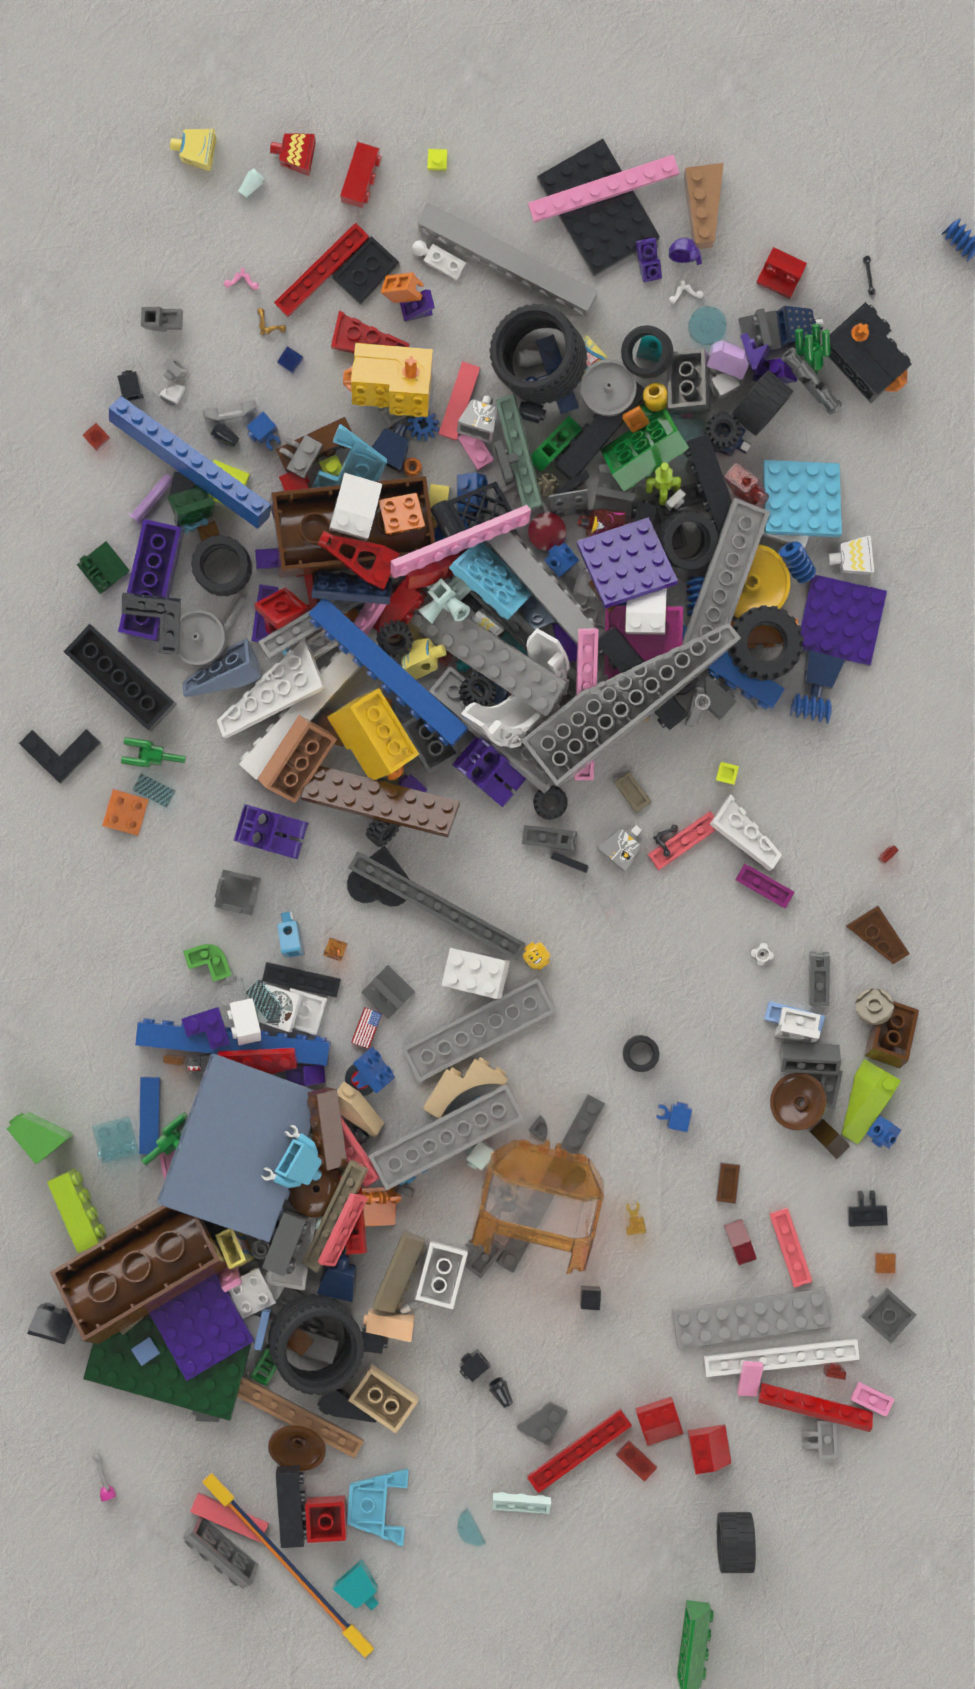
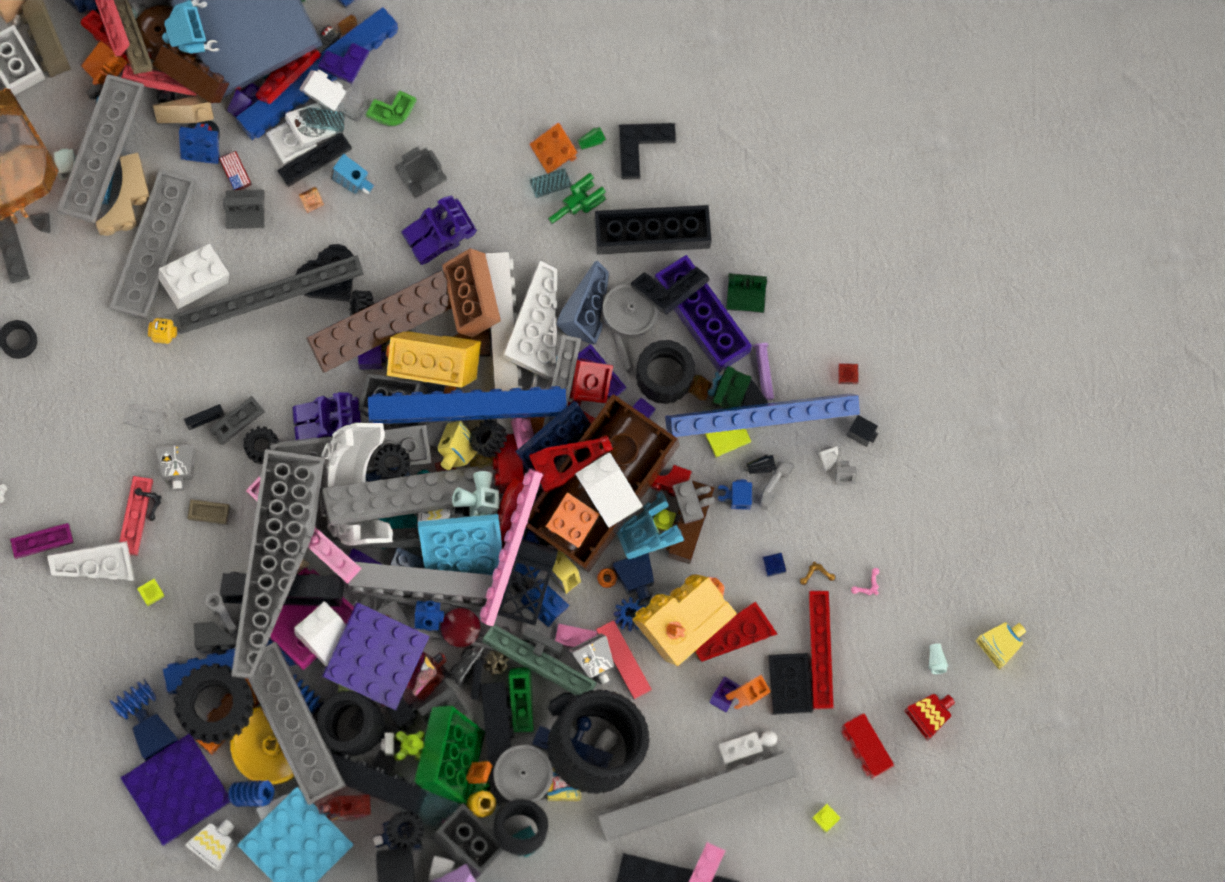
camera: 125 degrees right, 15 degrees down
(90, 792) = (592, 138): none -> green cone
(161, 319) = (892, 498): dark grey brick -> none

